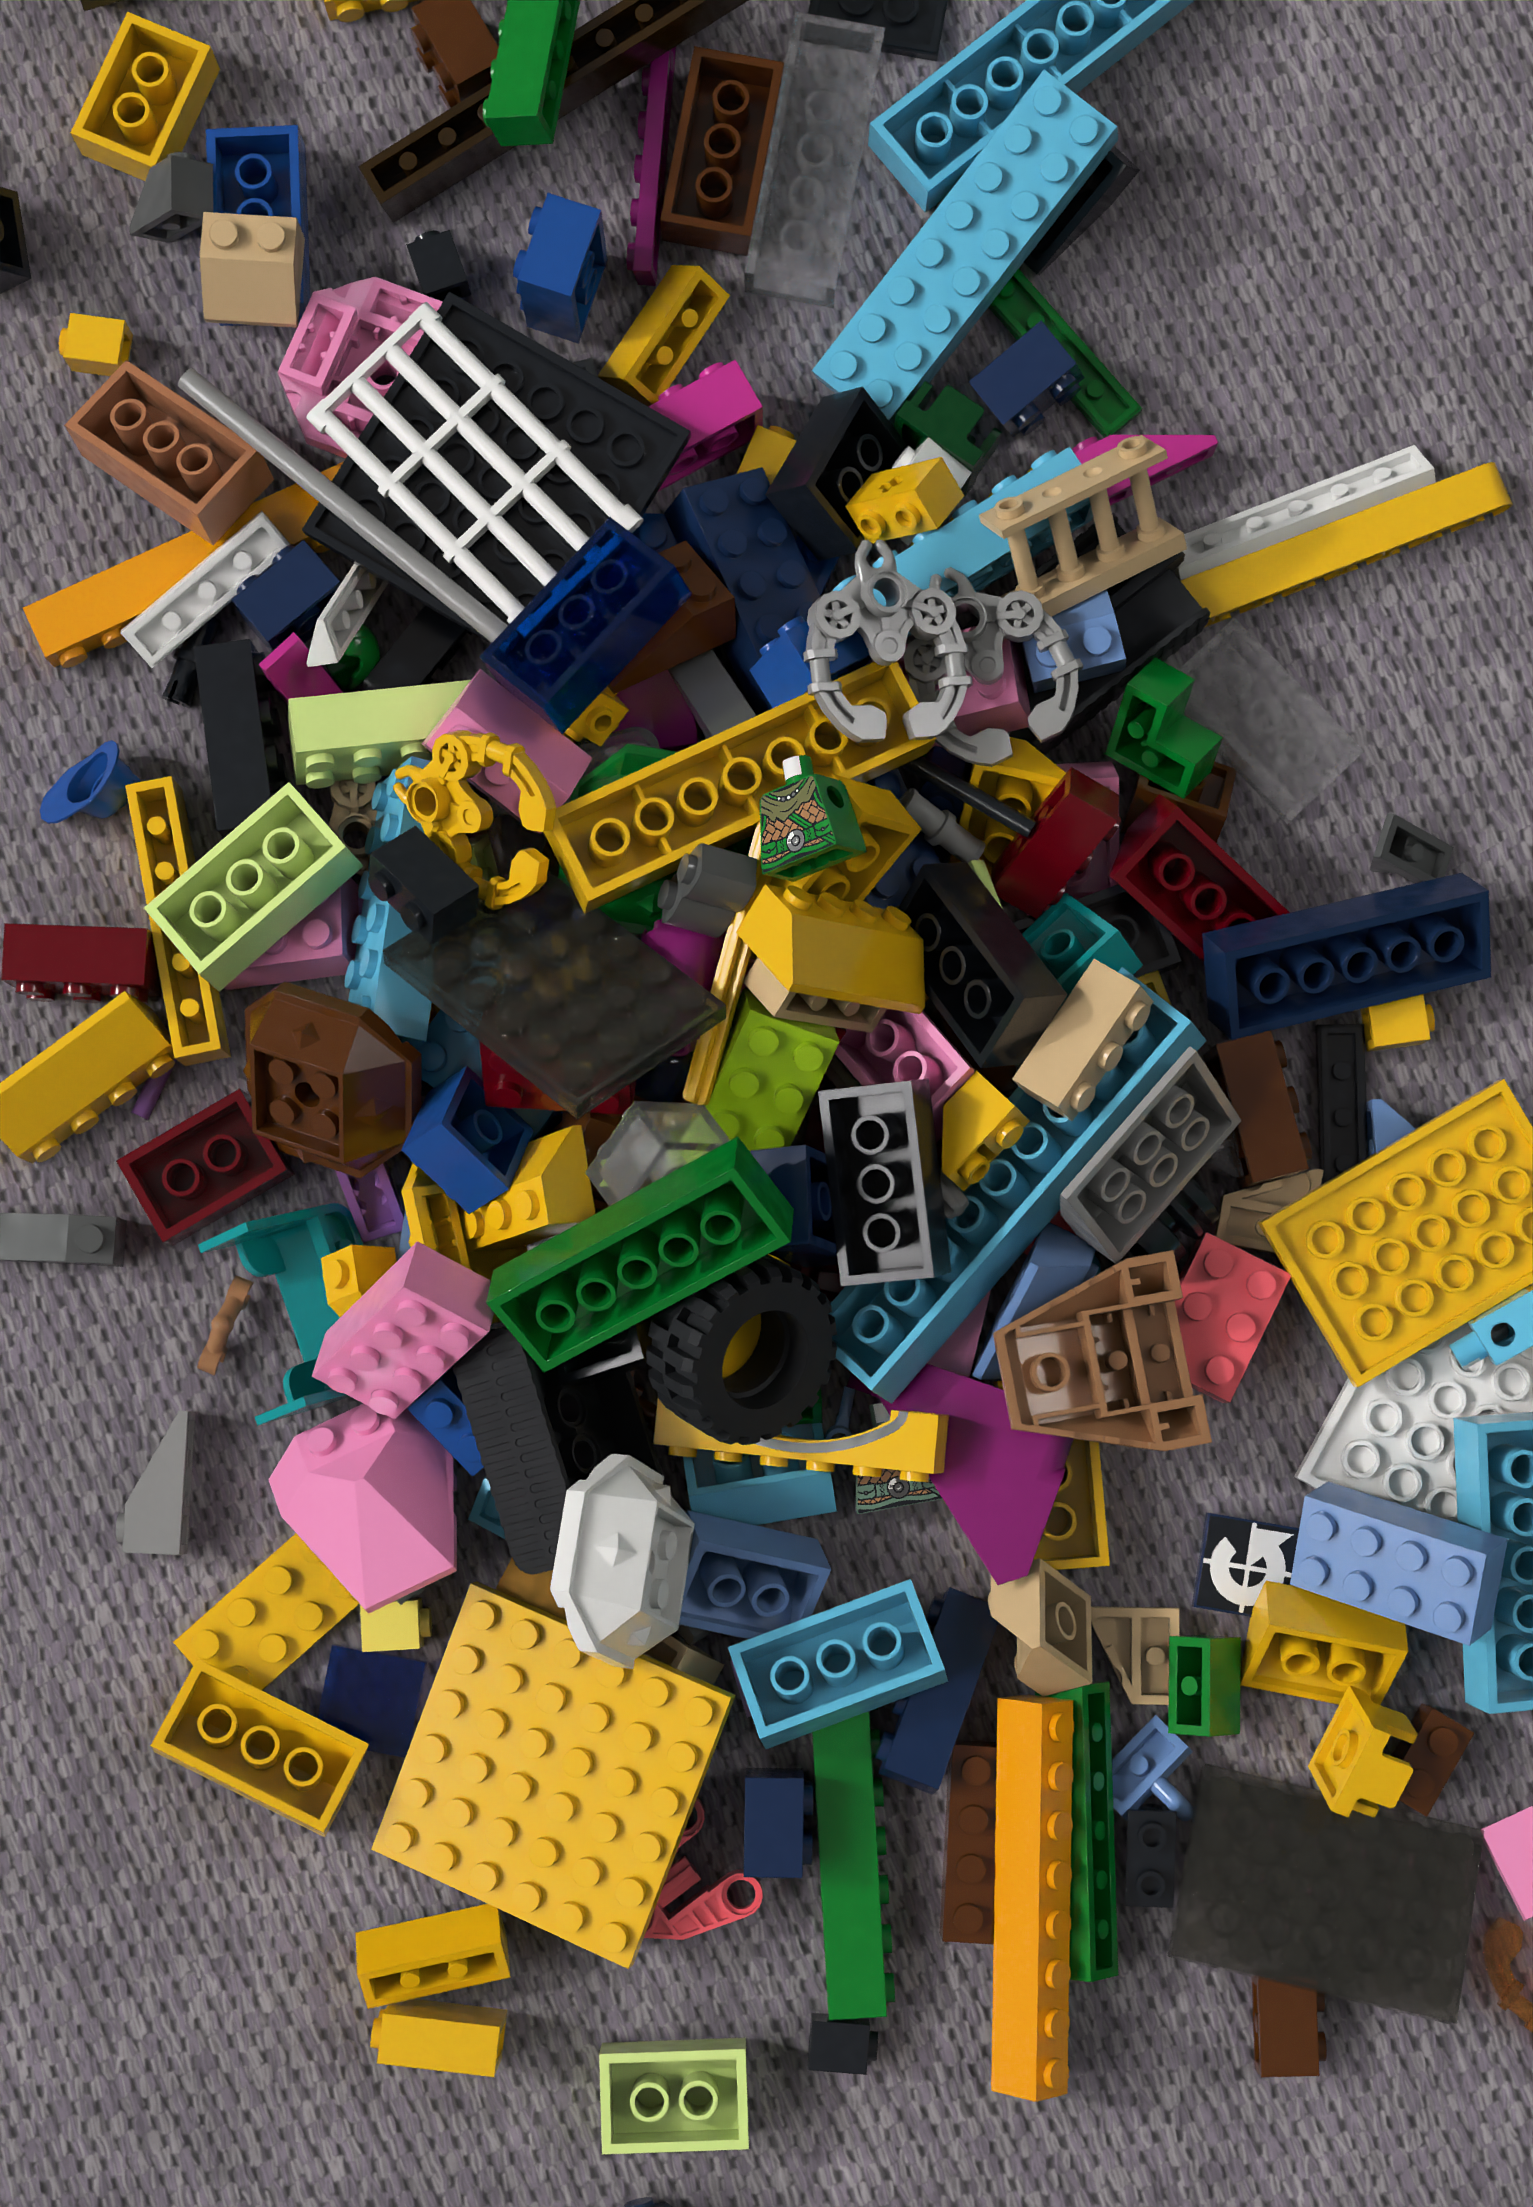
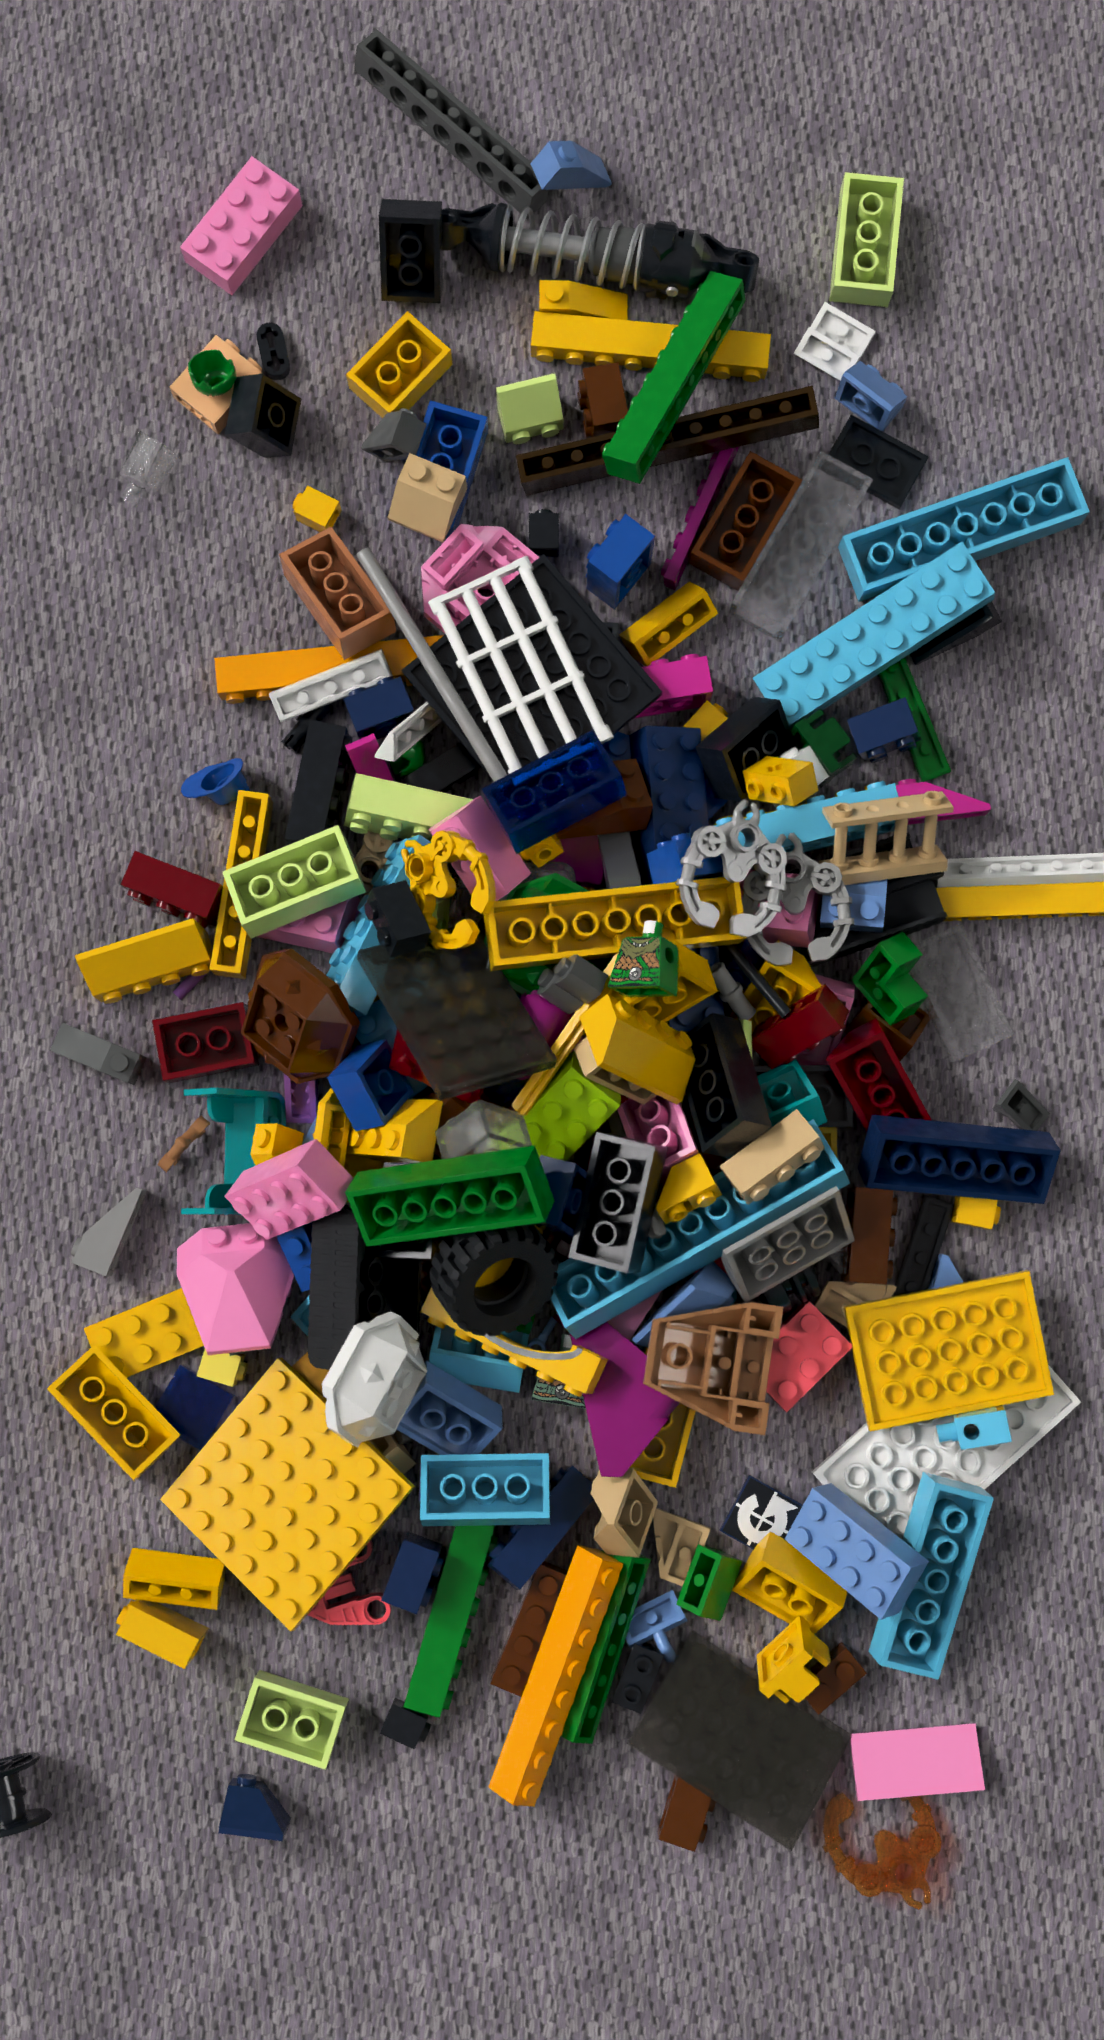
camera: 20 degrees right, 0 degrees up
(355, 94) = (530, 409): none -> yellowish green slope

